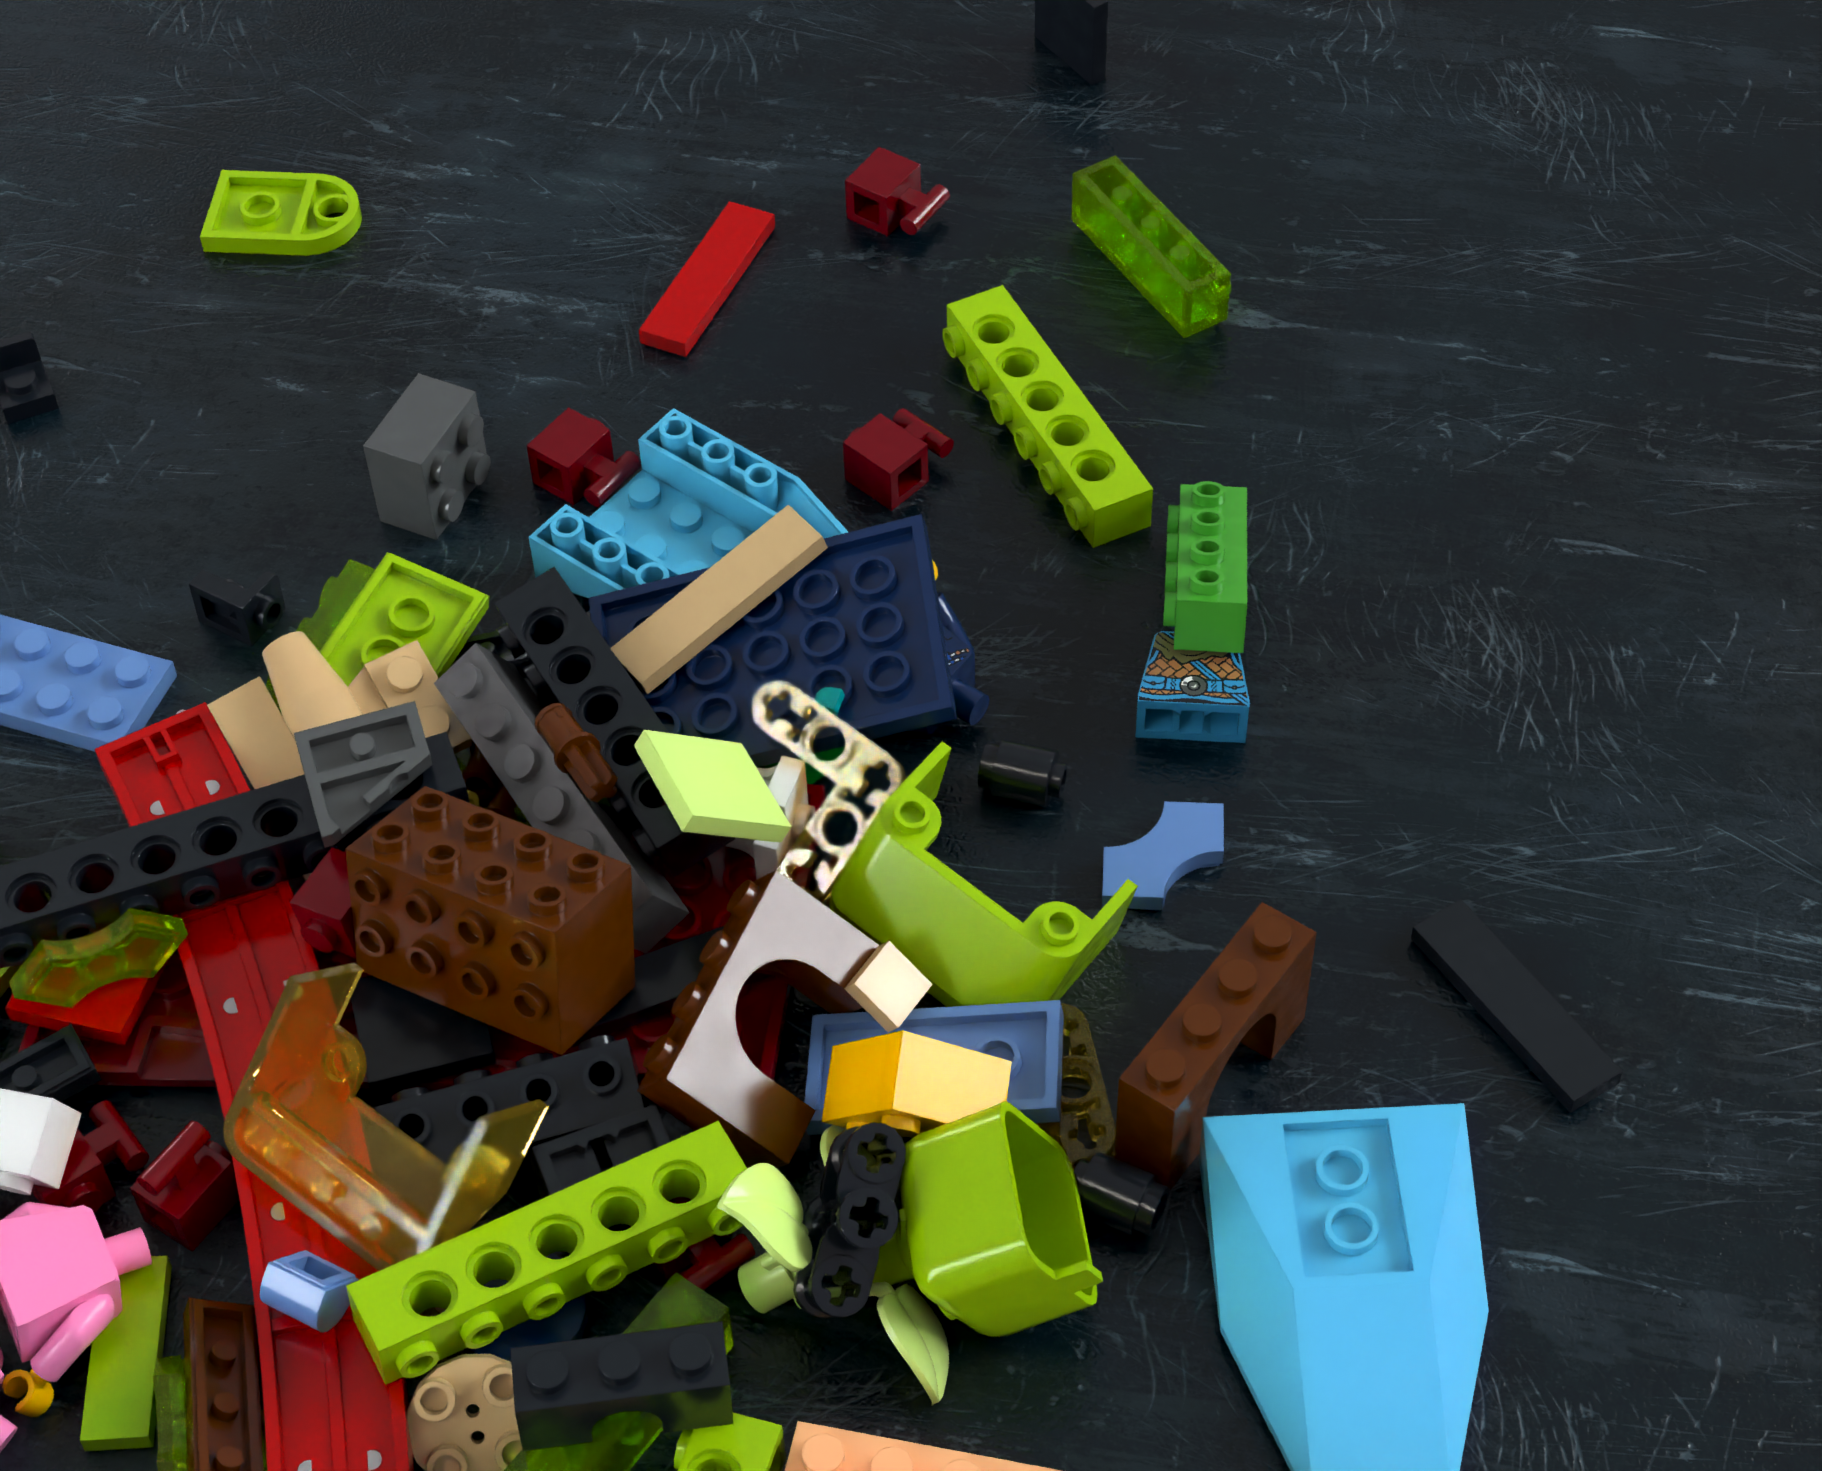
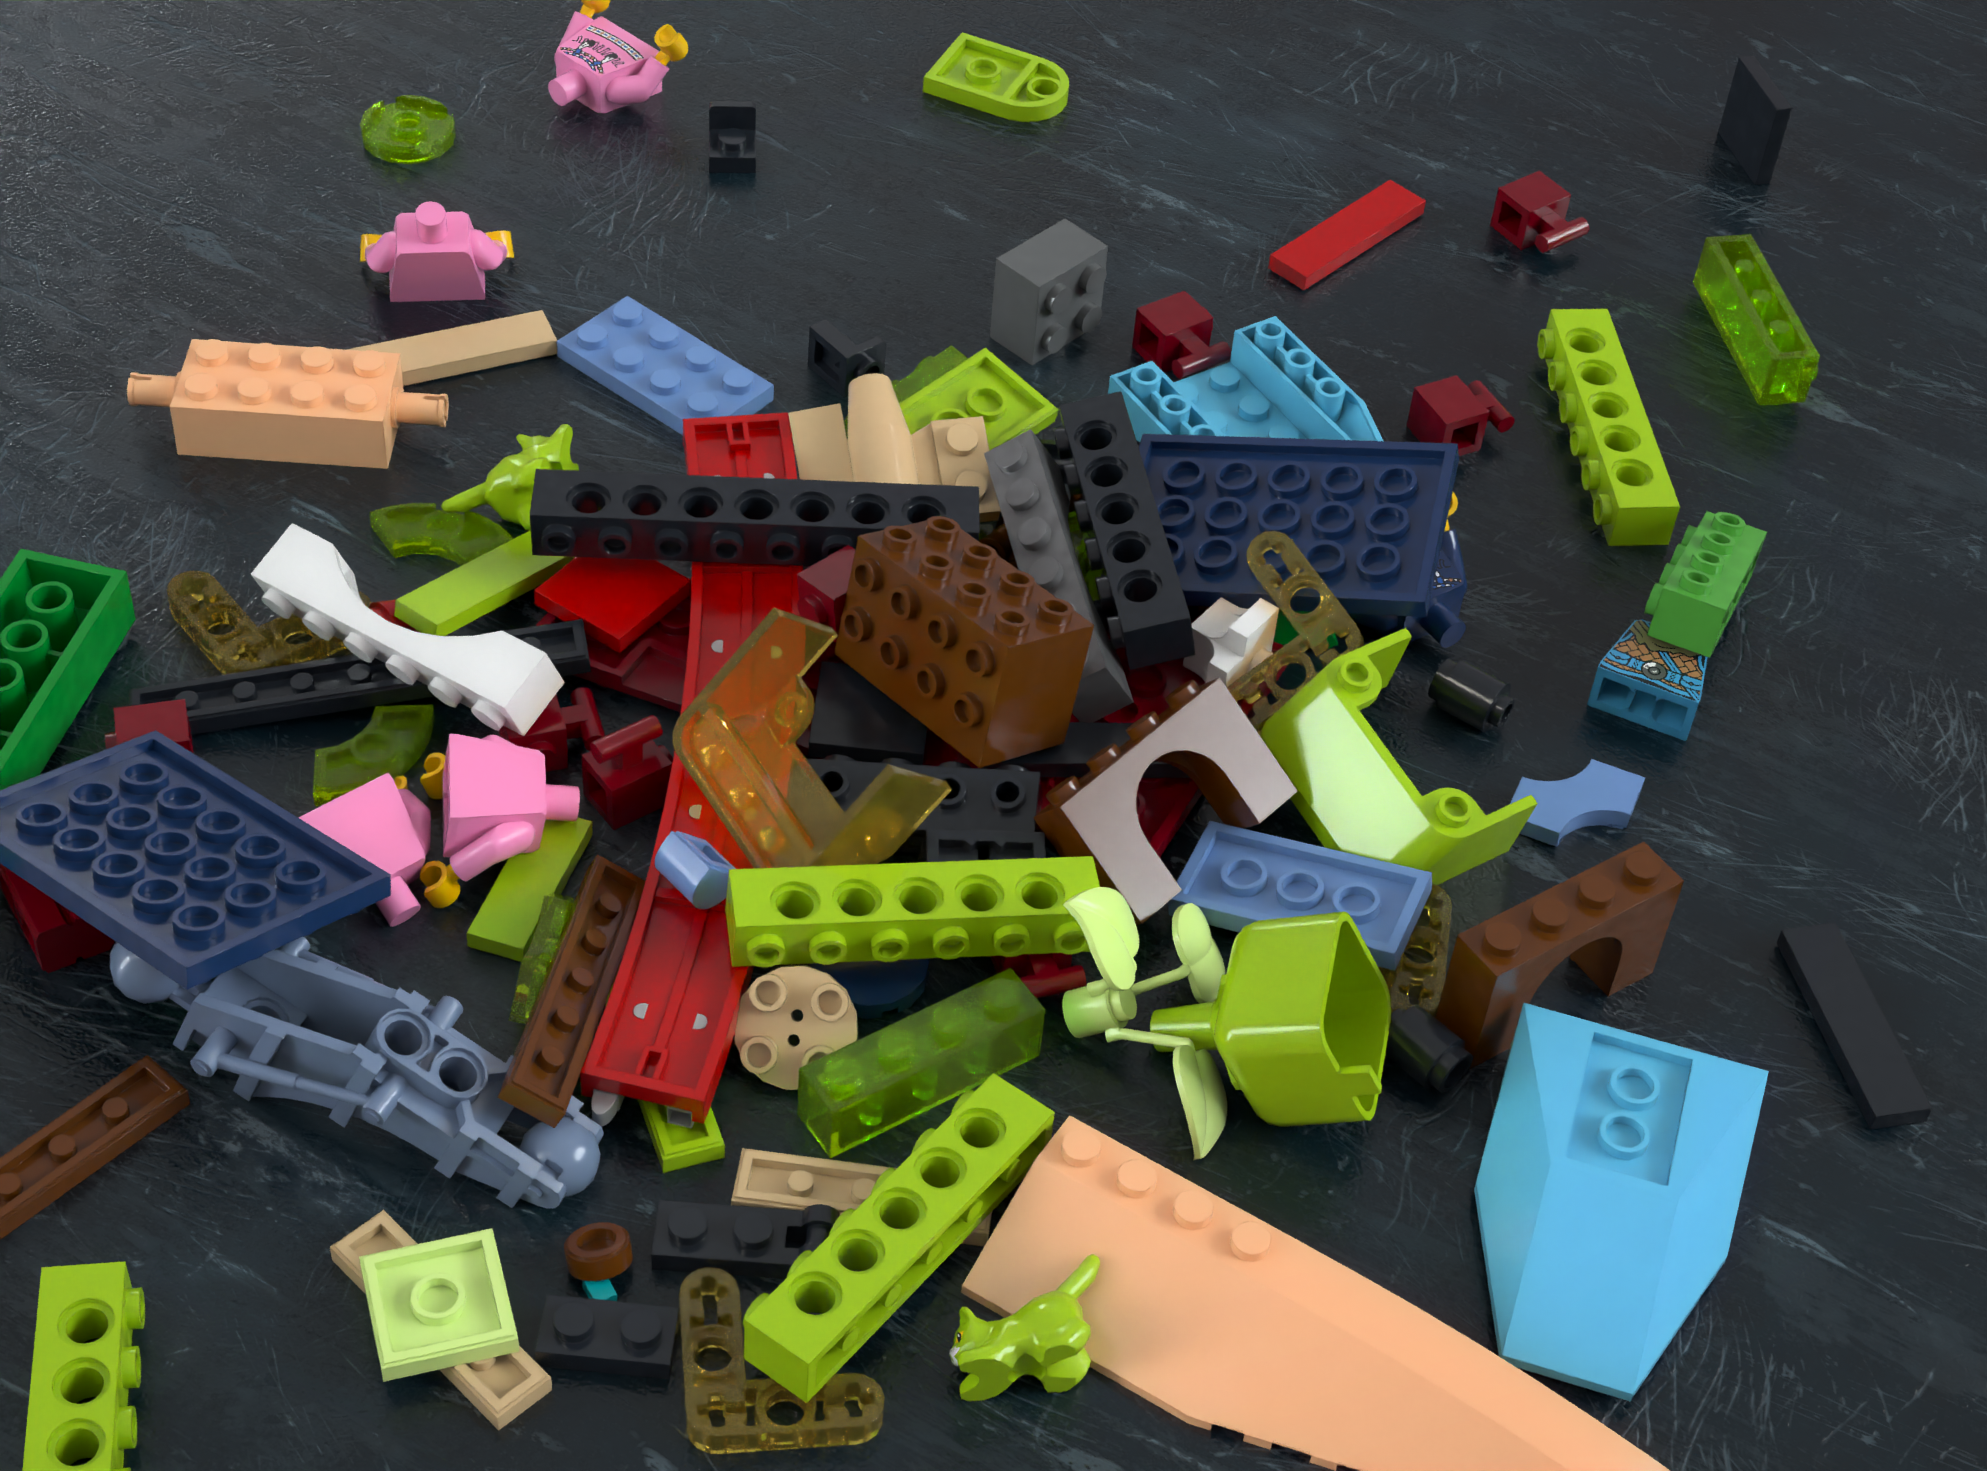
camera: 15 degrees right, 5 degrees down
(72, 968) = (646, 571): clear neon green tile -> none
(361, 765) = (897, 484): dark grey wing -> none
(576, 752) = (1083, 535): reddish brown axle -> none
(663, 1372) = (973, 1026): black arch -> none
(712, 786) = (1189, 595): yellowish green tile -> none
(718, 598) = (1255, 461): tan tile -> none
(830, 698) = (1322, 565): teal piece -> none
(860, 1198) = (1181, 966): black axle -> none
(888, 986) = (1283, 812): tile -> none
(910, 1083) = (1267, 877): yellow brick -> none

